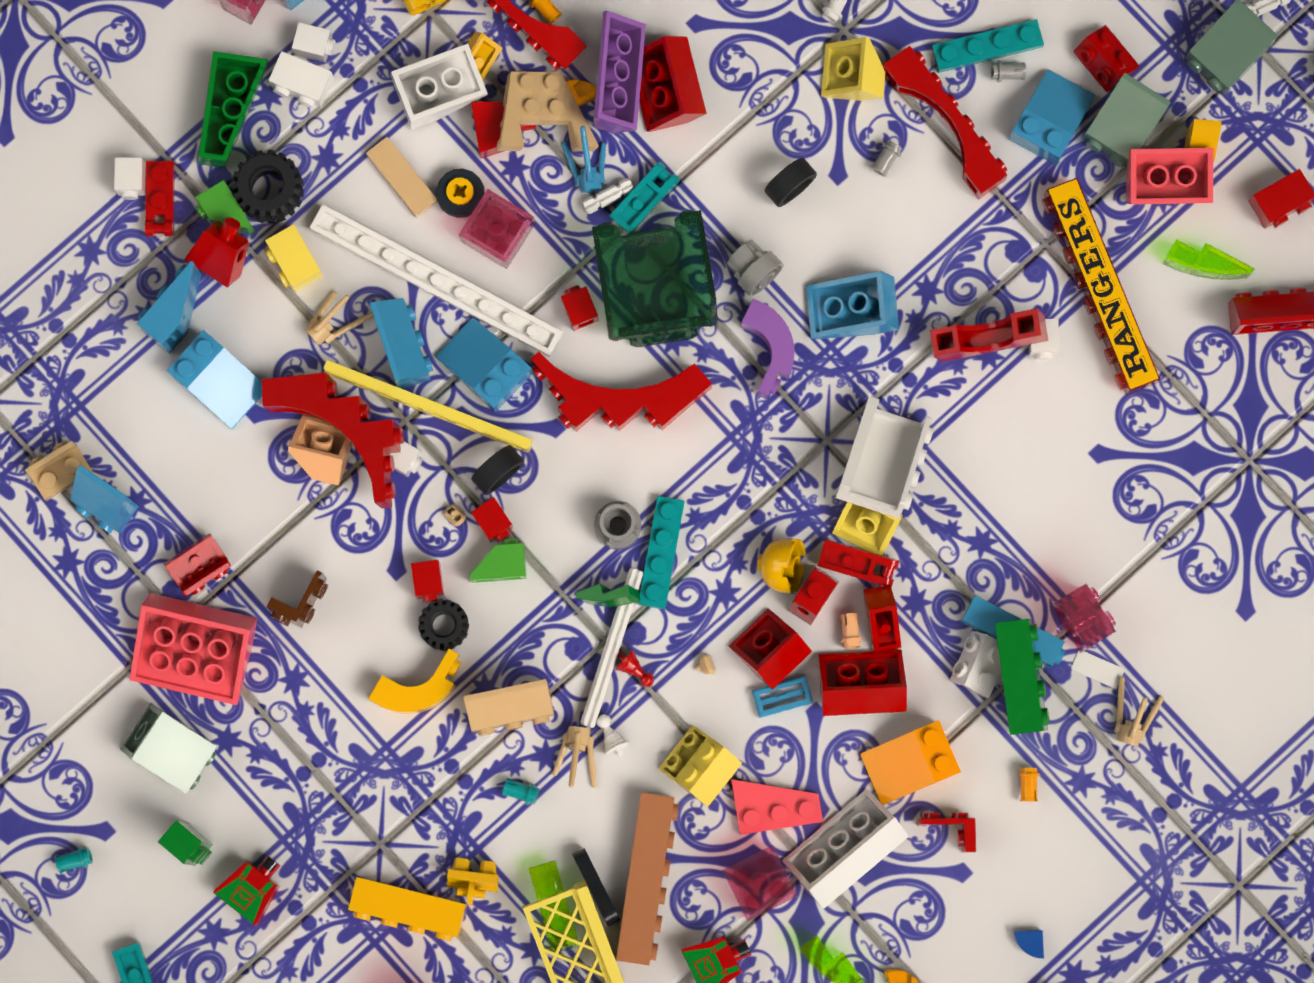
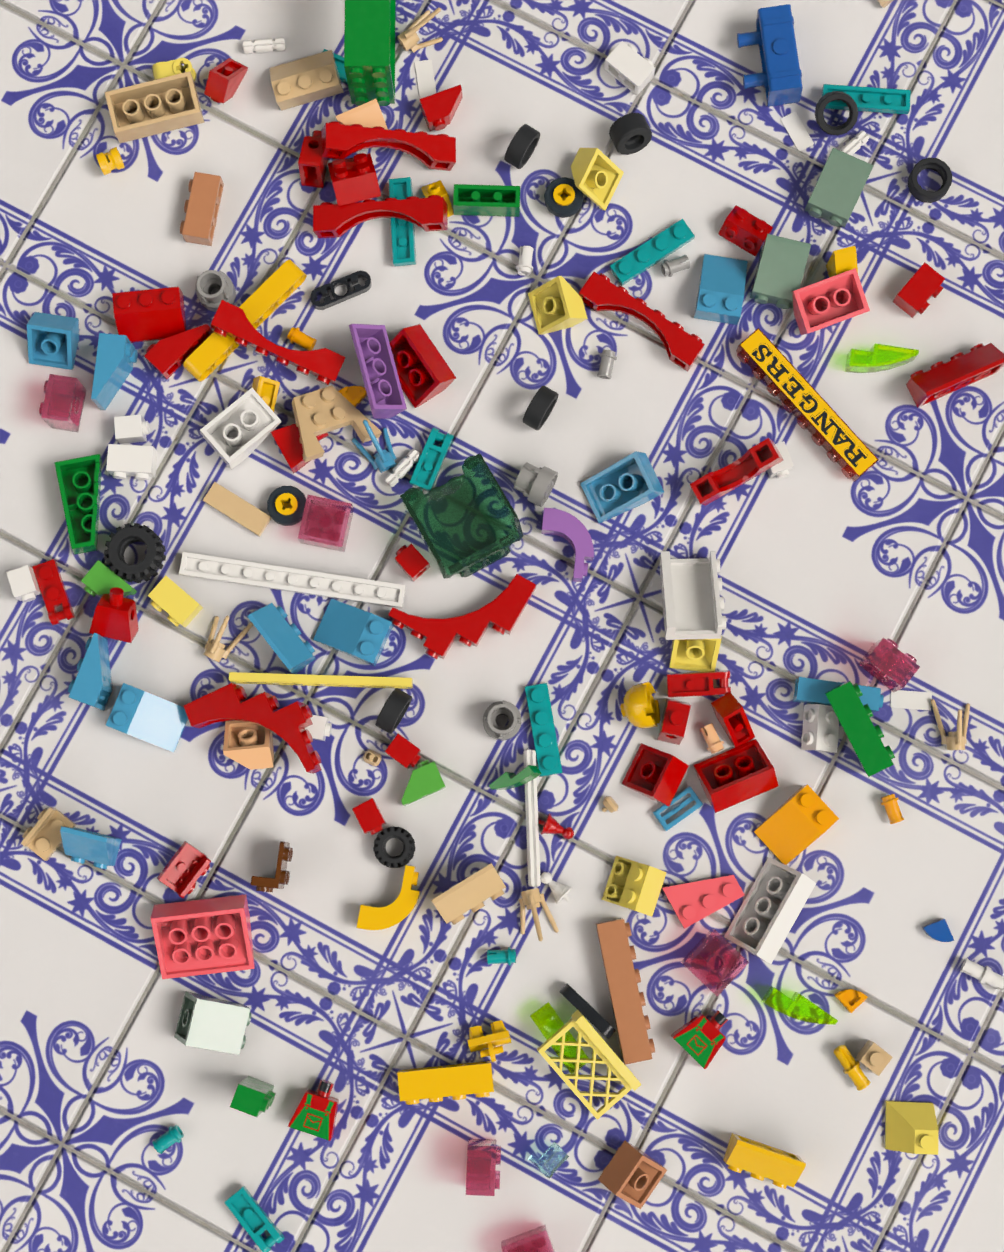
camera: 20 degrees left, 0 degrees up
(965, 838) = (859, 867): red bracket -> none

